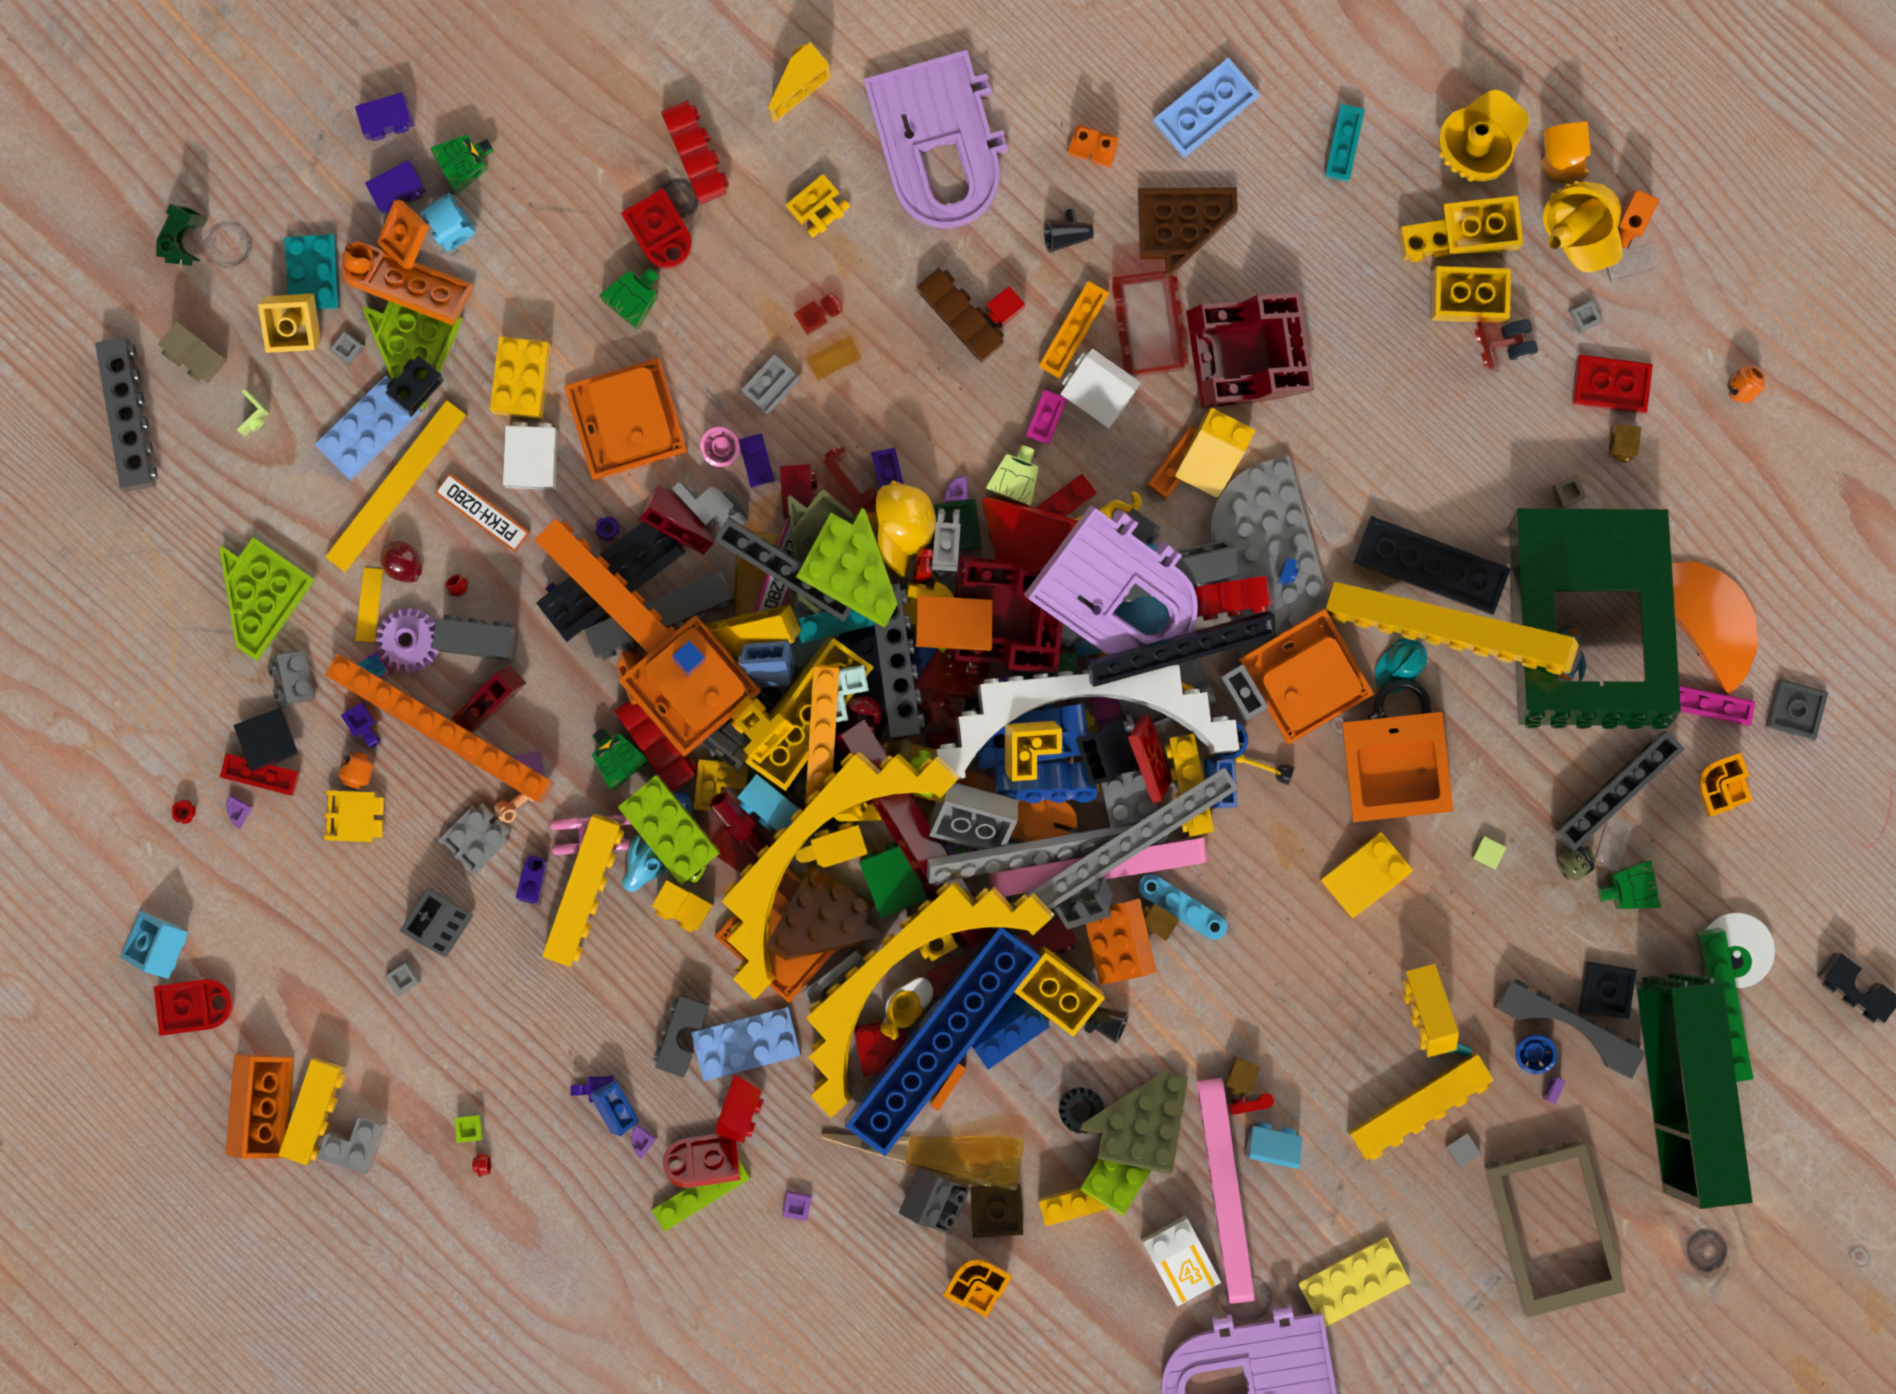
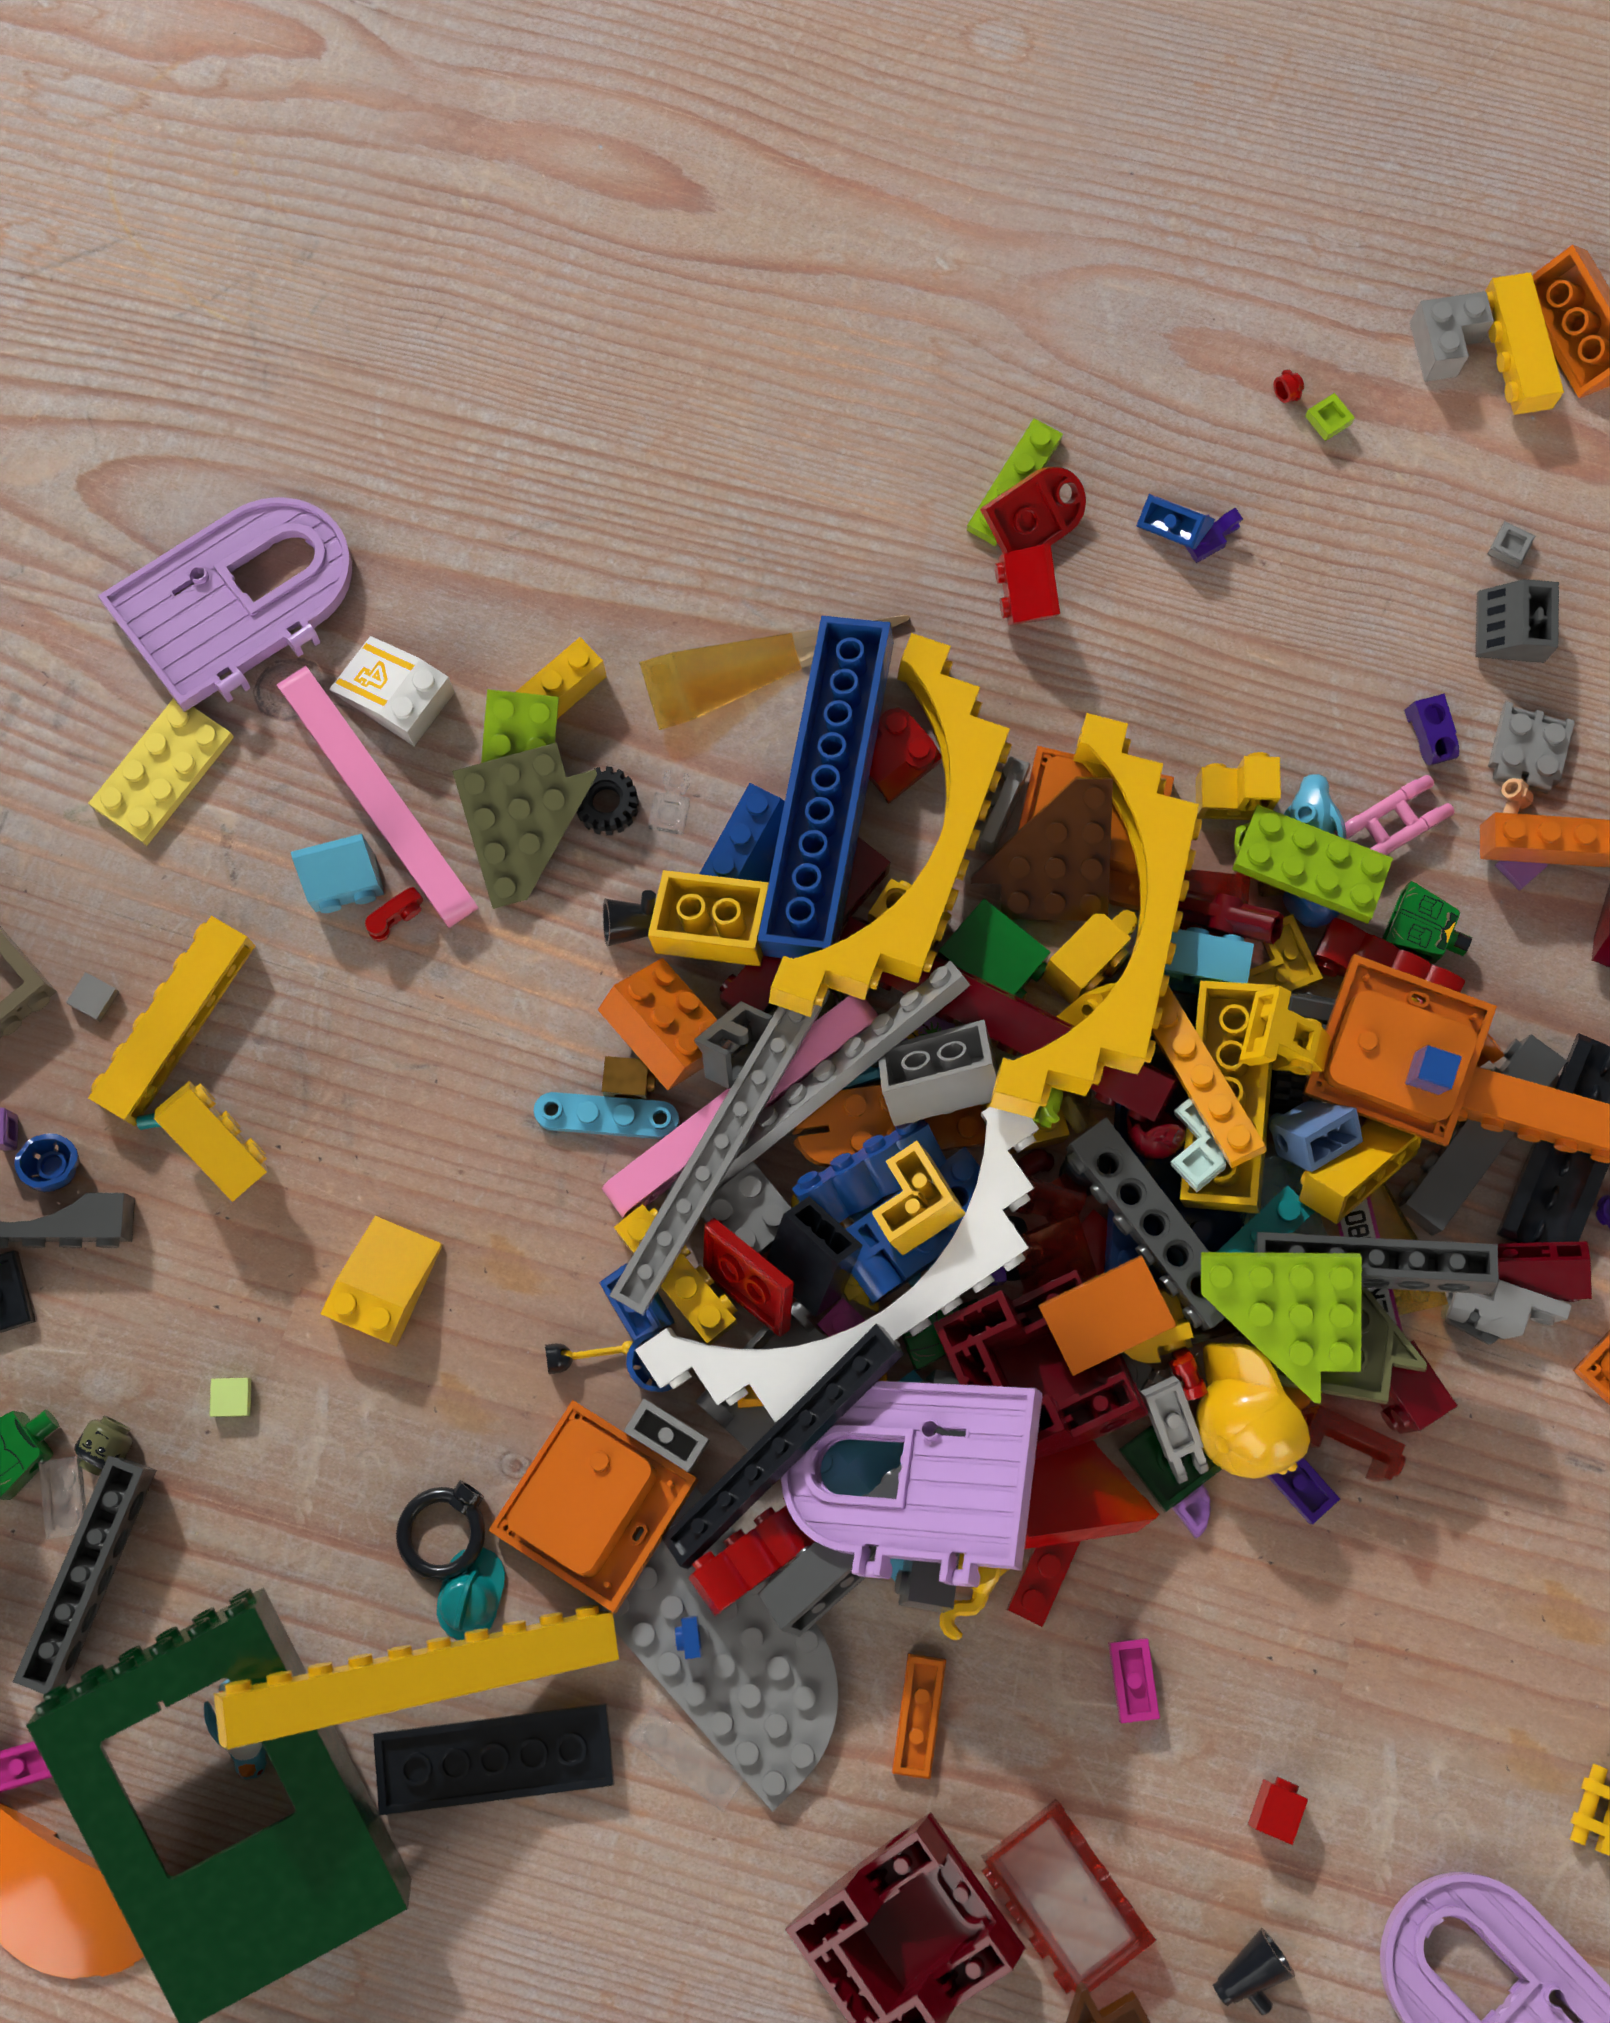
camera: 155 degrees right, 10 degrees down
(582, 890) = (1369, 746): yellow brick -> none
(641, 1140) = (1119, 506): medium lavender tile -> none
(672, 1056) = (1142, 614): dark grey arch -> none
(721, 446) = (1536, 1402): bright pink helmet -> none
(746, 1044) = (1061, 675): light blue plate -> none
(756, 460) = (1481, 1407): dark purple plate -> none
(770, 385) = (1524, 1520): light grey plate -> none
(797, 1205) = (893, 524): medium lavender tile -> none
(812, 317) = (1528, 1649): clear red plate -> none
(833, 358) = (1463, 1605): clear yellow tile -> none
(906, 1005) = (893, 808): yellow hair -> none
(934, 1200) = (732, 605): dark grey slope -> none
(944, 1091) = (788, 741): orange plate -> none
(959, 314) = (1332, 1763): reddish brown brick -> none
(977, 1285) = (628, 534): light orange brick -> none
(996, 1211) = (648, 630): dark brown plate -> none
(1015, 477) = (1128, 1570): yellowish green torso -> none
(1073, 330) = (1165, 1831): light orange plate -> none
(1099, 387) = (1086, 1763): white brick -> none
(1214, 452) = (878, 1757): yellow slope -> none
(1241, 1076) = (423, 942): pearl gold brick -> none
(1397, 771) = (403, 1440): orange piece -> none
(1569, 491) = (345, 1979): dark tan plate -> none

